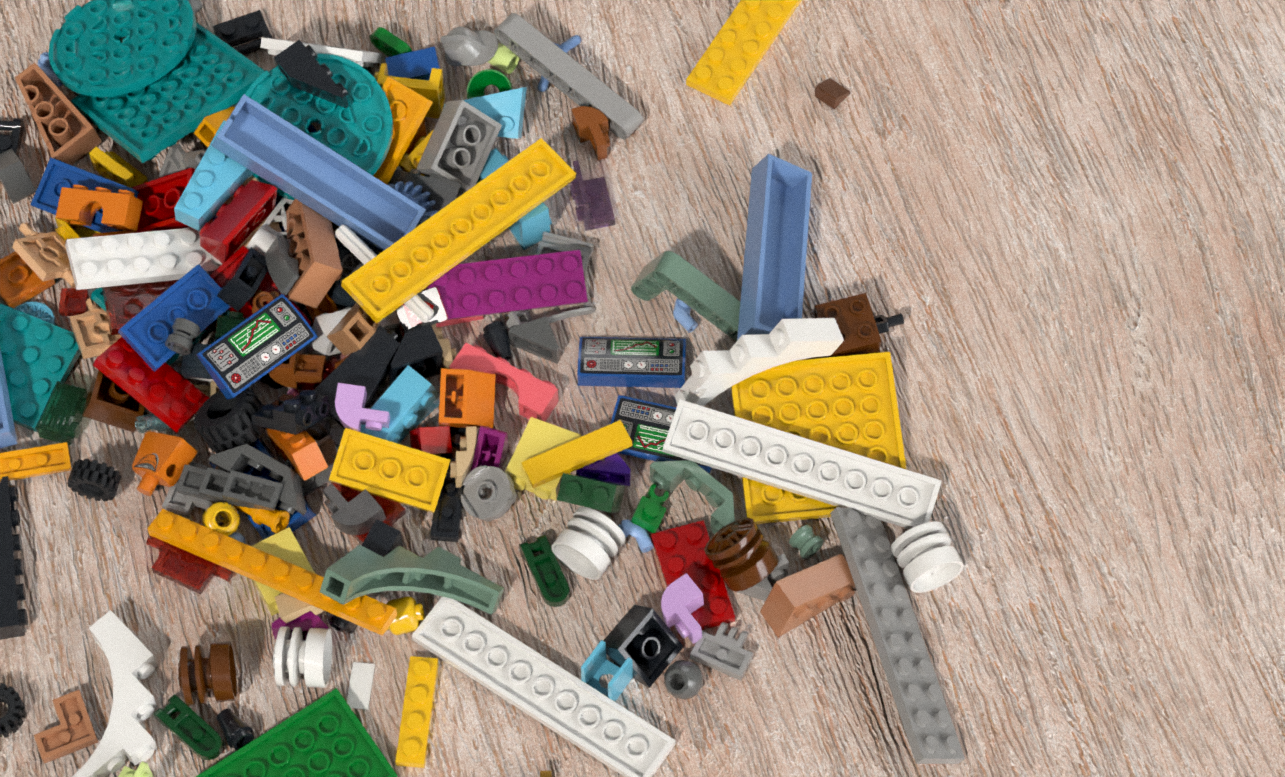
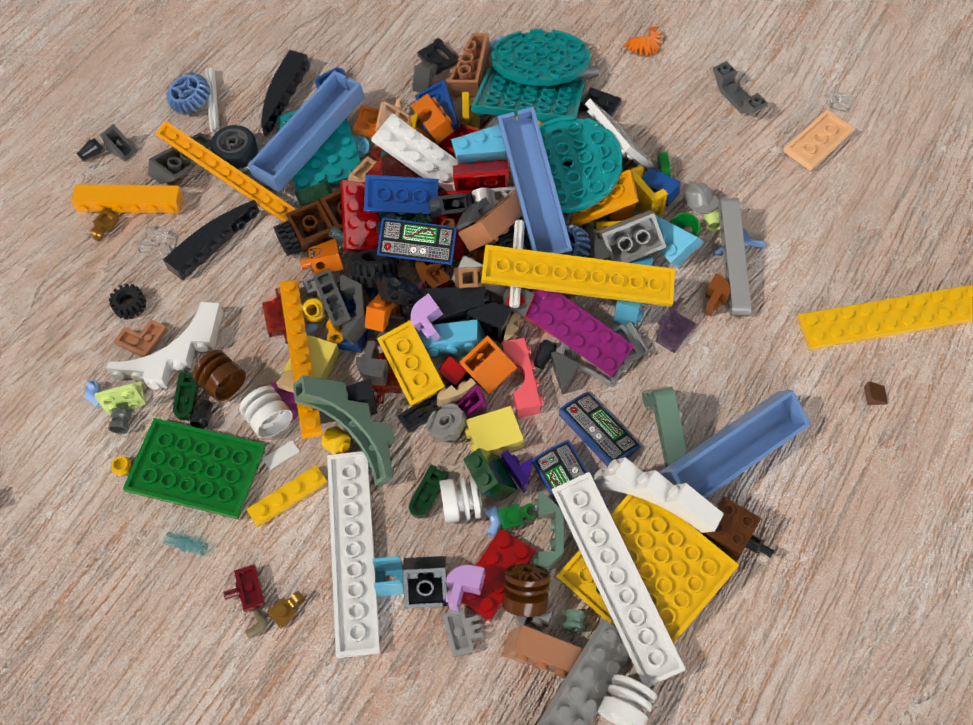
camera: 50 degrees right, 0 degrees up
(103, 439) = (310, 225): none -> reddish brown brick
(182, 336) = (386, 207): dark grey wheel -> none
(305, 73) = (589, 127): black slope -> none
(576, 454) = (508, 447): yellow tile -> none
(682, 315) = (652, 435): light blue arm -> none
(683, 679) = (421, 623): dark grey piece -> none

